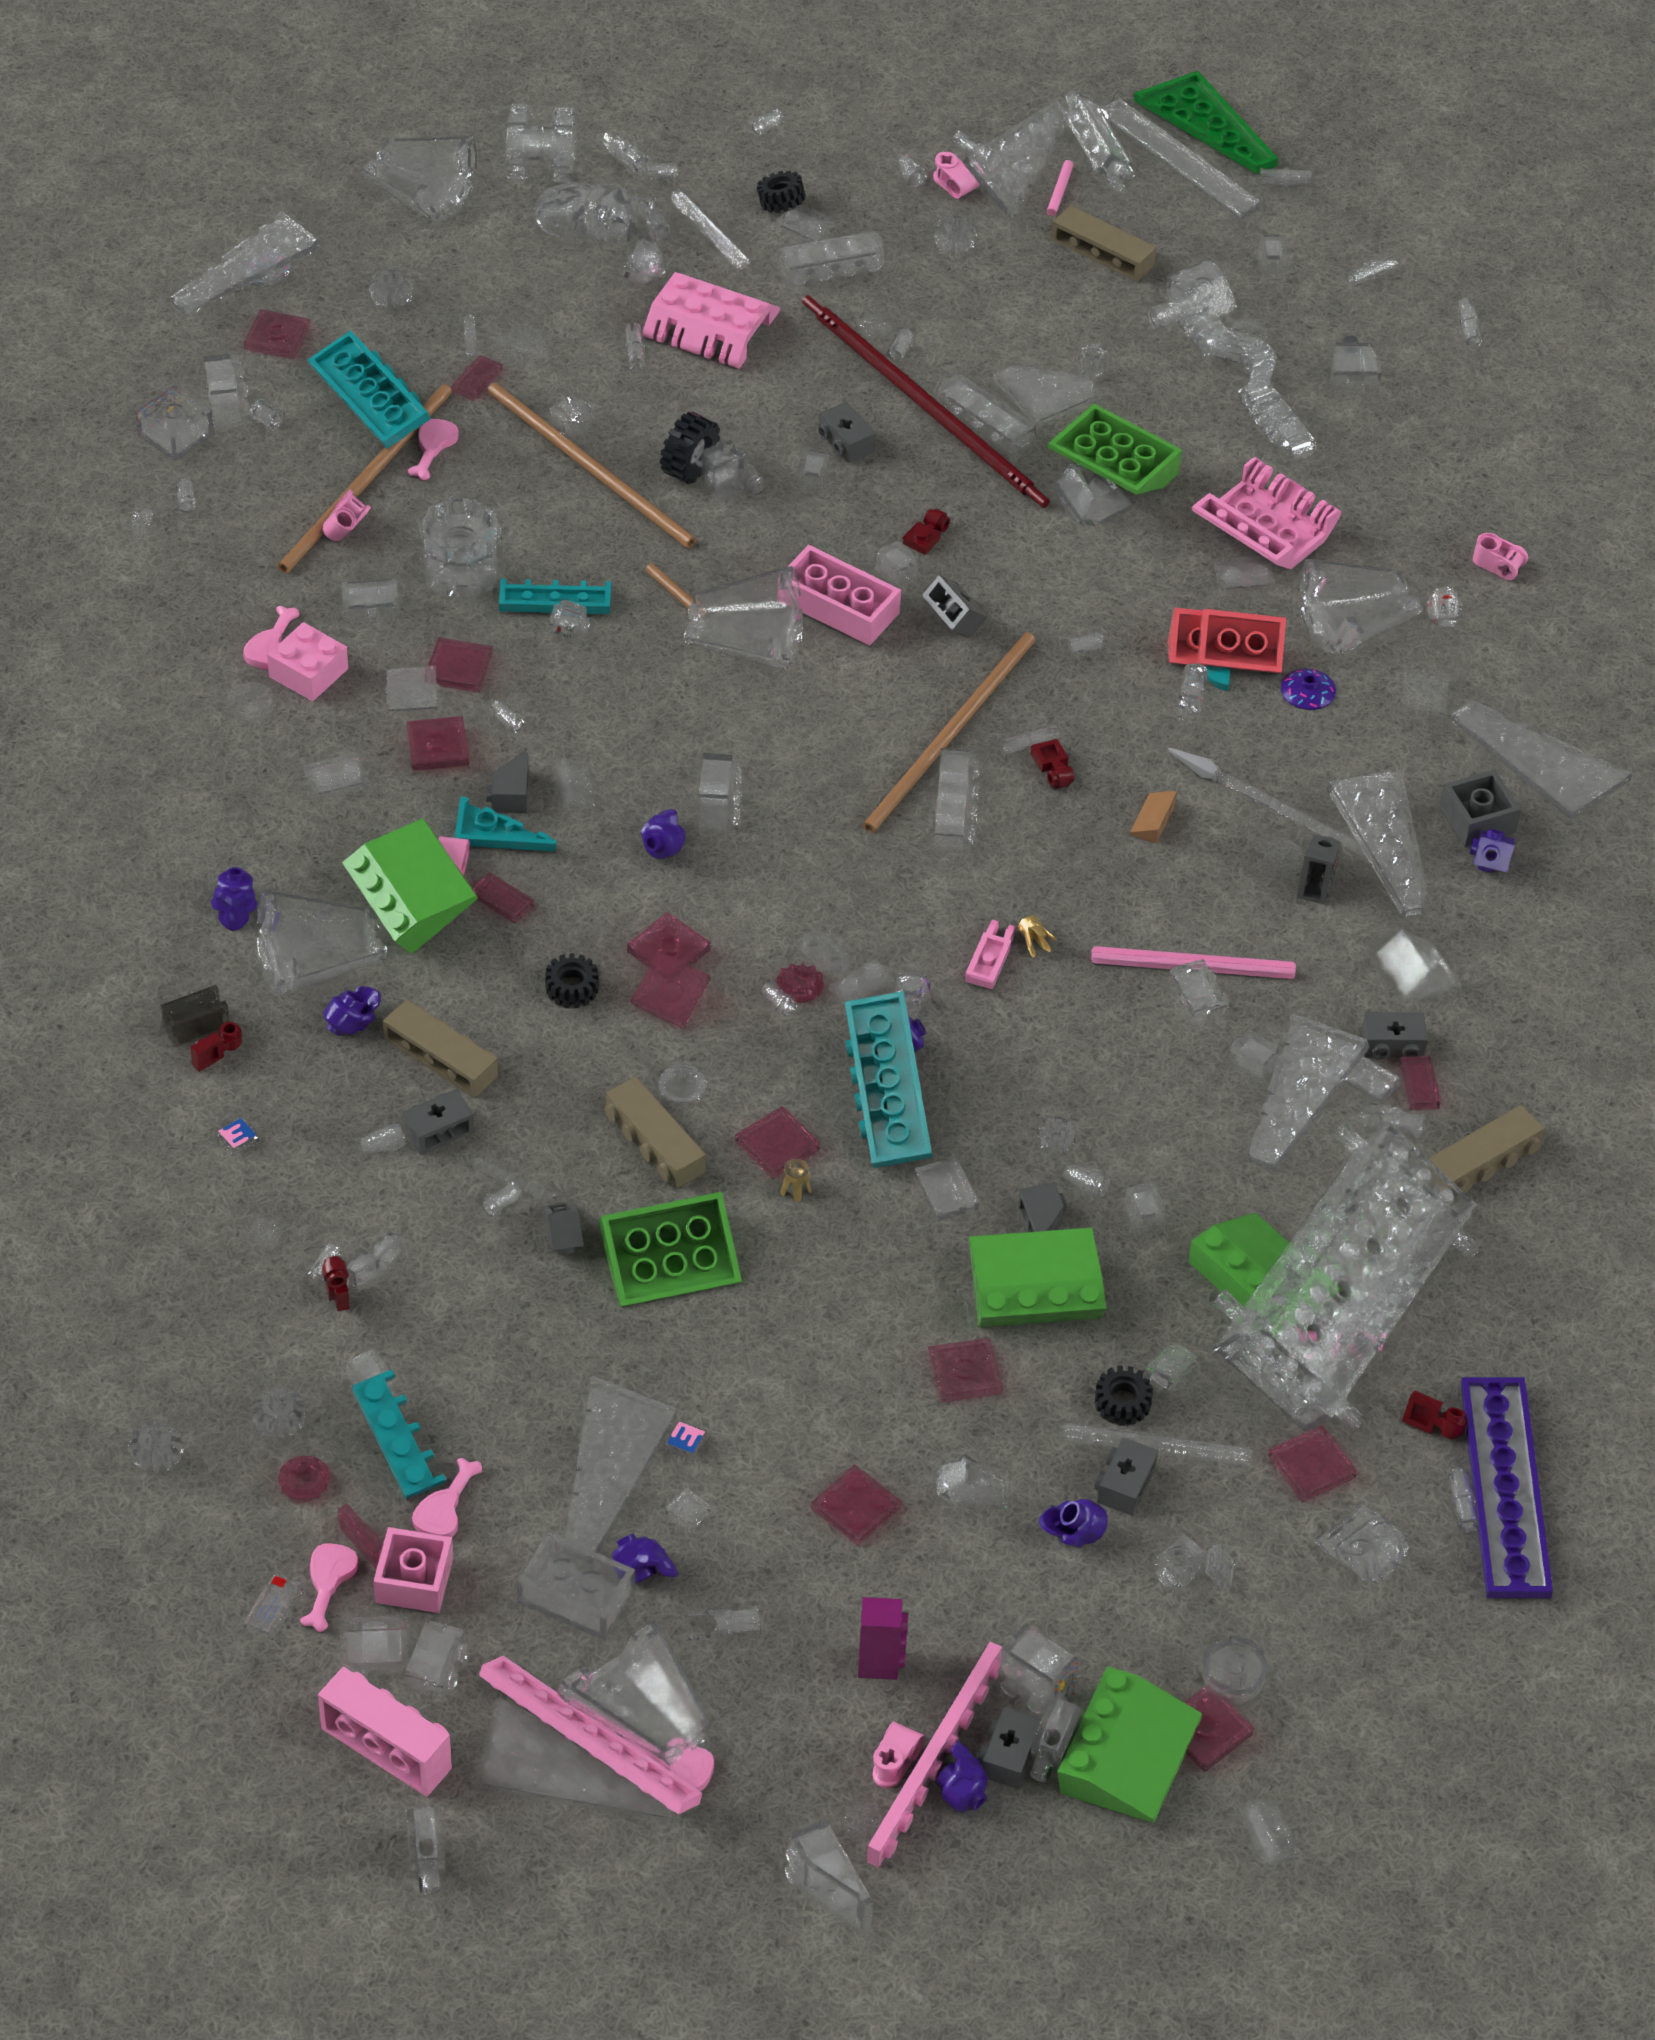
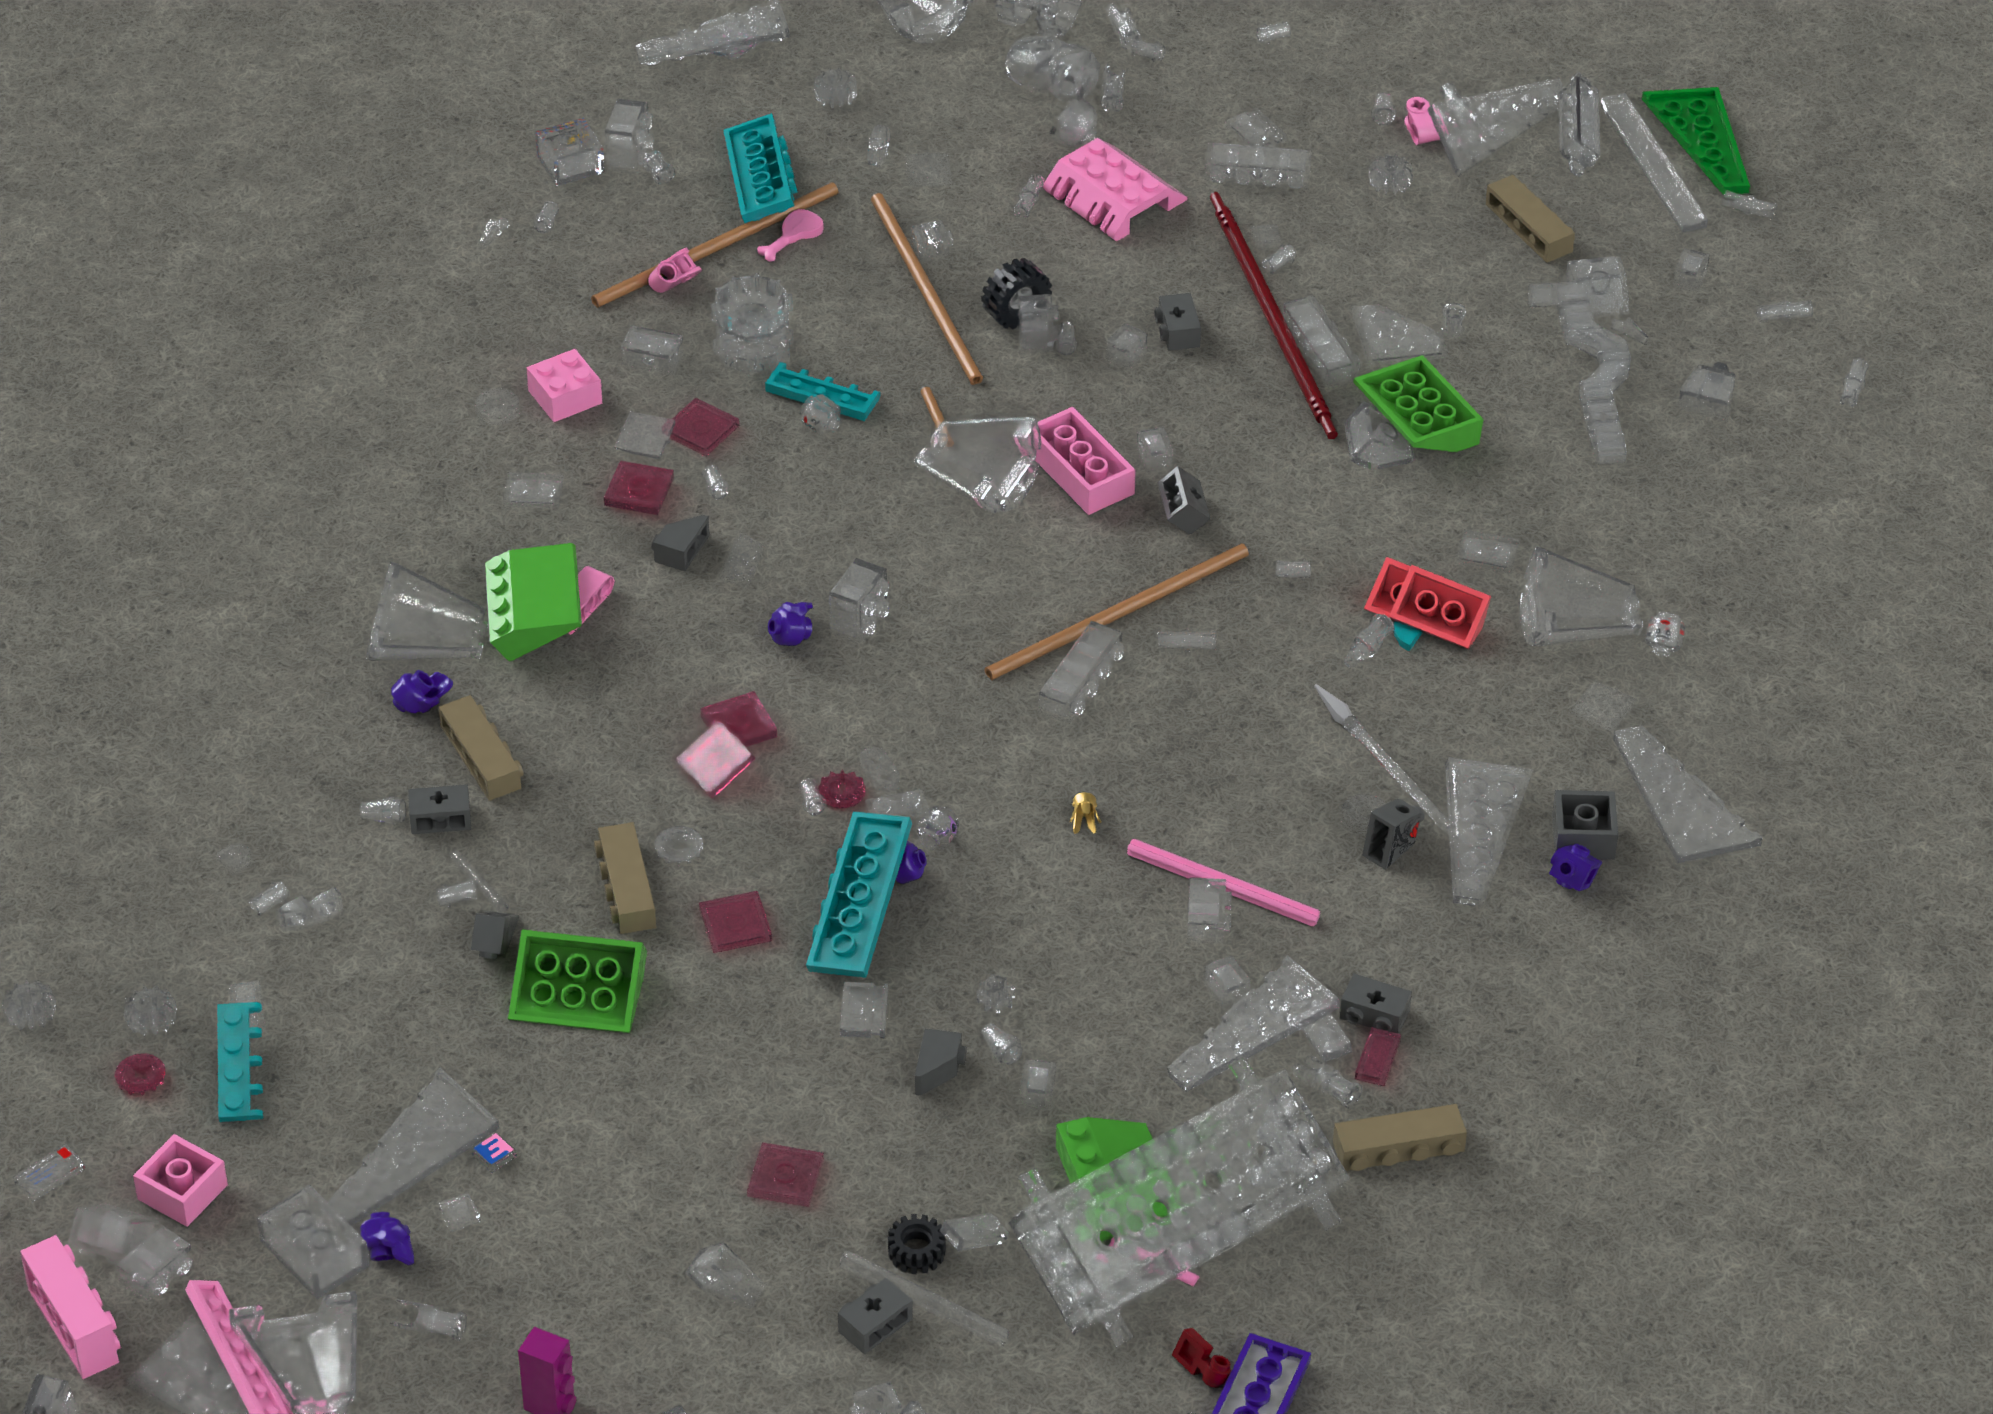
camera: 25 degrees right, 5 degrees down
(194, 1016) = (282, 655): clear smoke brick -> none
(211, 1049) = (279, 687): dark red plate -> none
(234, 898) = (374, 563): dark purple head -> none
(237, 1136) = (261, 768): tile -> none
(261, 644) = (540, 355): bright pink piece -> none
(277, 334) = (712, 102): clear pink tile -> none
(328, 1568) = (116, 1156): bright pink piece -> none
(335, 1275) = (263, 909): dark red plate -> none
(359, 1534) = (154, 1127): clear pink tile -> none
(437, 1511) = (237, 1142): bright pink piece -> none
(477, 377) = (867, 185): clear pink tile -> none
(495, 830) = (640, 574): teal wing -> none
(502, 897) = (617, 636): clear pink tile -> none
(572, 968) = (633, 737): black tyre -> none
(710, 230) = (1162, 113): clear axle -> none
(781, 191) = (1245, 94): black tyre -> none
(796, 1173) = (728, 951): piece -> none
(856, 1505) = (612, 1258): clear pink plate -> none
(925, 537) = (1197, 433): dark red plate -> none
(990, 956) = (1032, 817): bright pink hinge -> none
(1036, 1277) = (893, 1112): bright green slope -> none
(1052, 757) = (1197, 666): dark red plate -> none
(1060, 188) = (1522, 158): bright pink bar -> none
(1075, 1522) = (799, 1339): dark purple head -> none
(1154, 816) = (1266, 742): medium nougat slope -> none
(1271, 519) = (1539, 503): bright pink slope -> none
(1308, 689) = (1489, 671): dark purple dish -> none
(1312, 1463) = (1061, 1364): clear pink tile -> none
(1417, 967) = (1437, 950): clear slope -> none
(1497, 555) = (1750, 601): bright pink piece -> none

